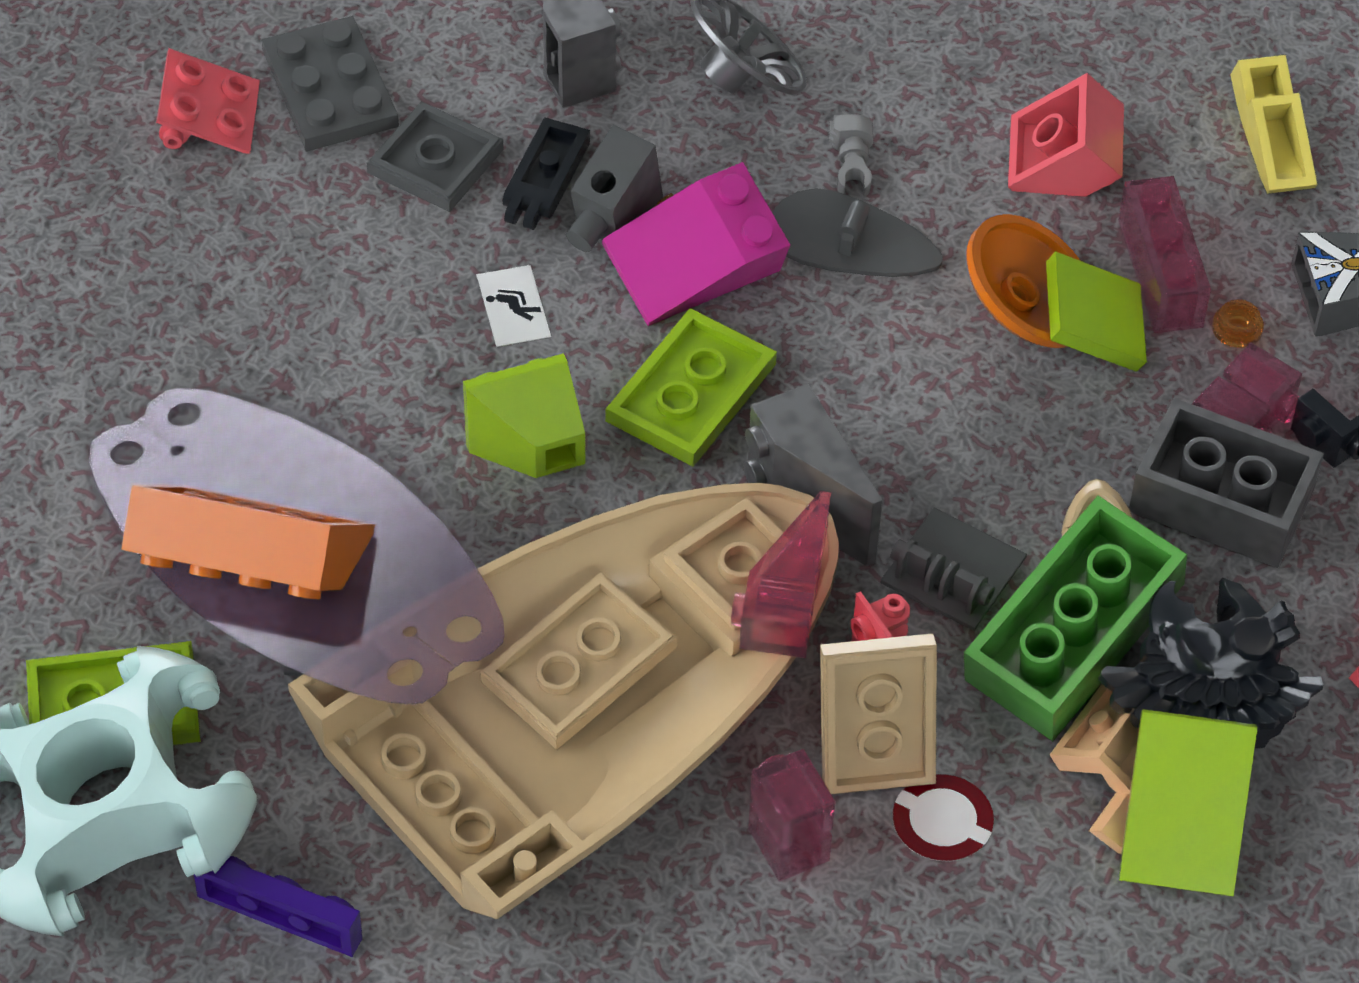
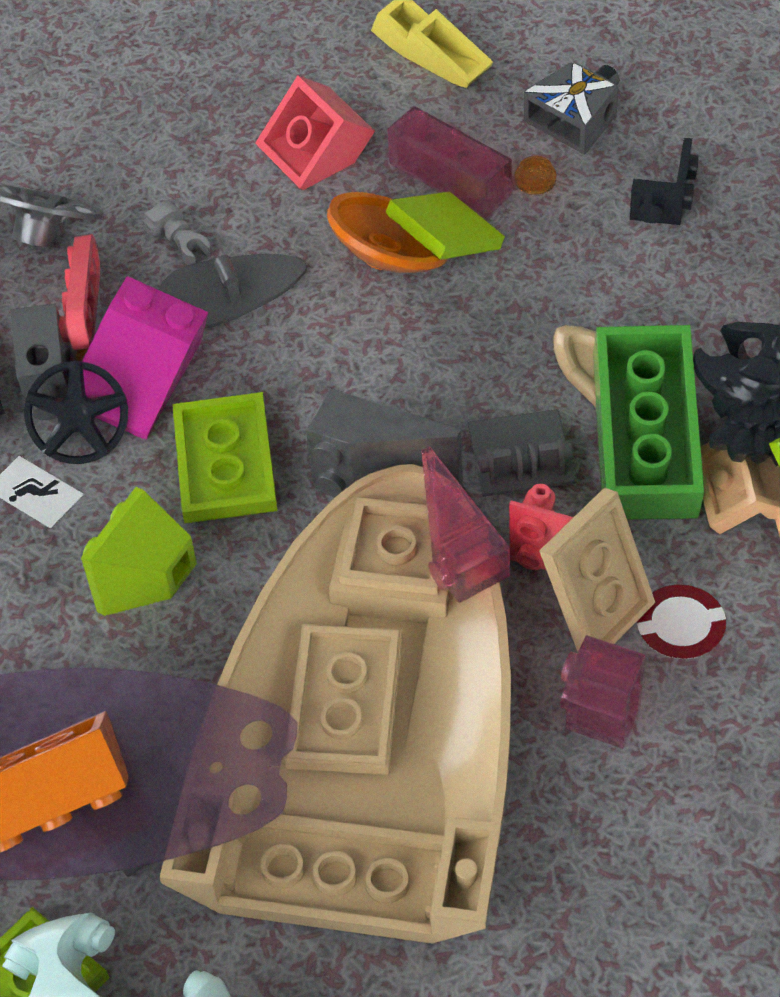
camera: 35 degrees left, 0 degrees up
(598, 257) = (76, 412): none -> black wheel
(707, 150) = (82, 293): none -> coral plate
(1225, 482) = (641, 272): flat silver brick -> none
(1259, 392) = (596, 220): clear pink piece -> none

